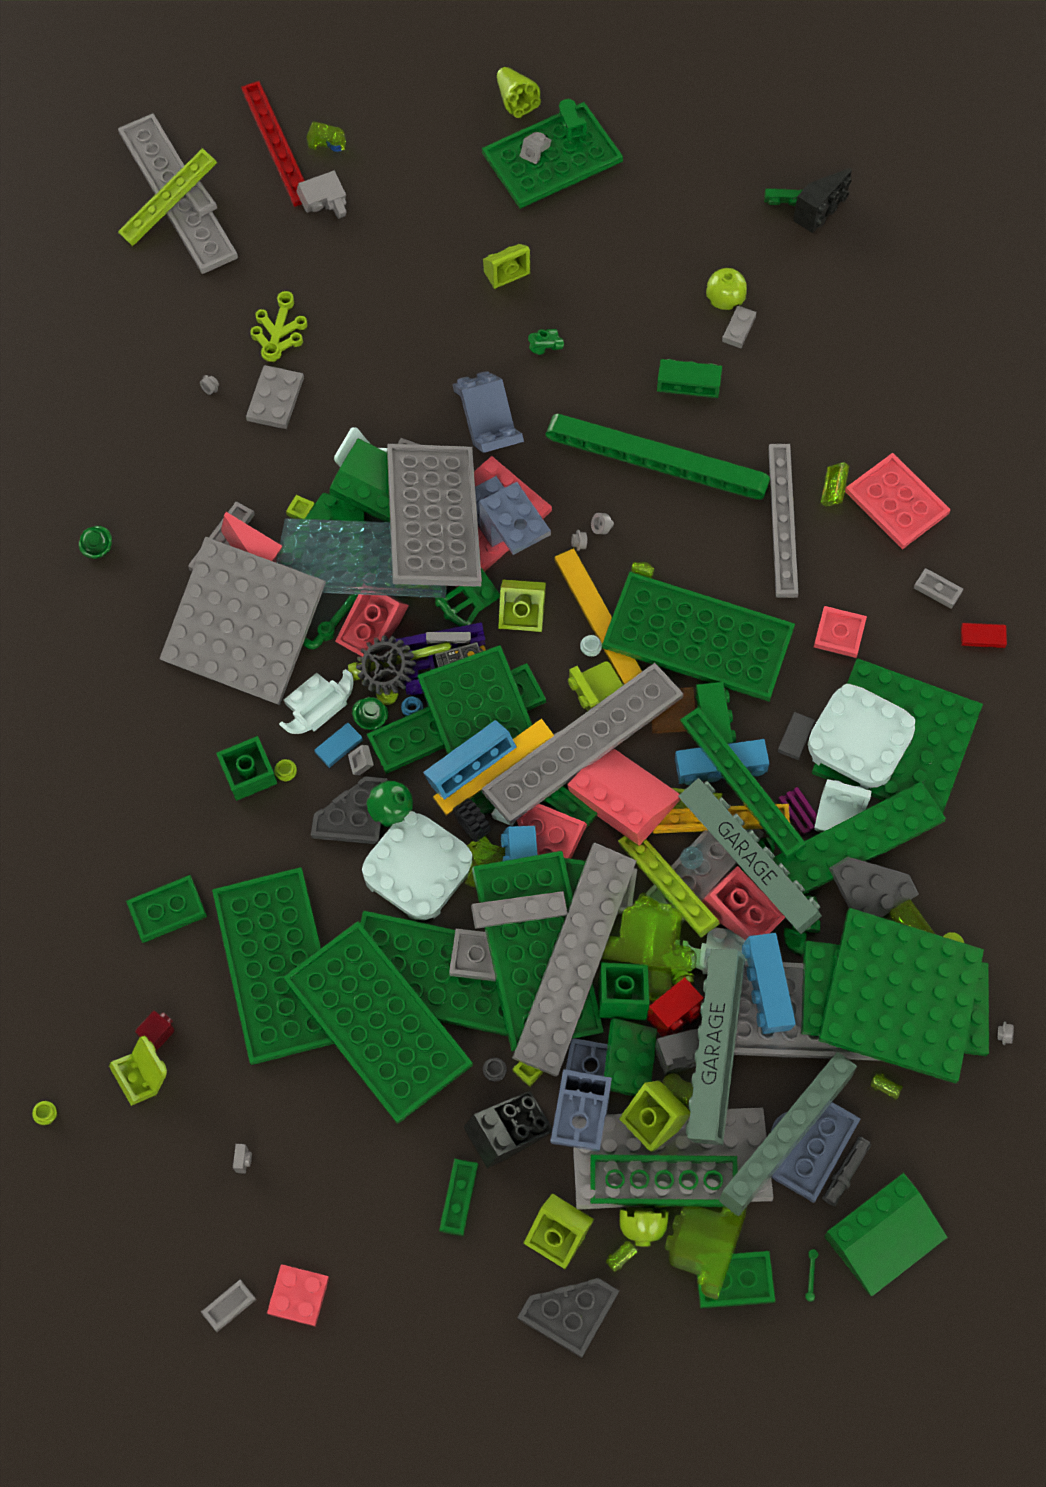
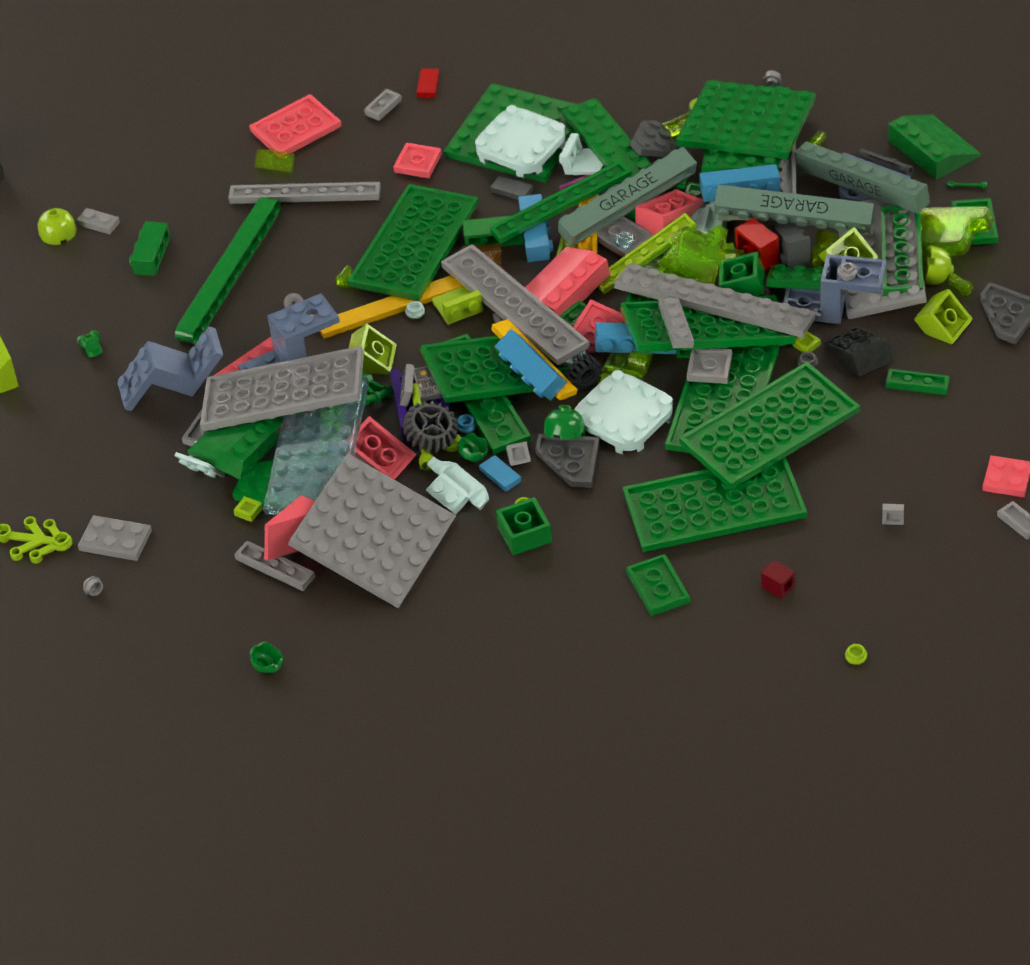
camera: 85 degrees left, 20 degrees down
(140, 1072) = (816, 579): lime bracket -> none
(573, 1093) = (847, 271): none -> light grey plate

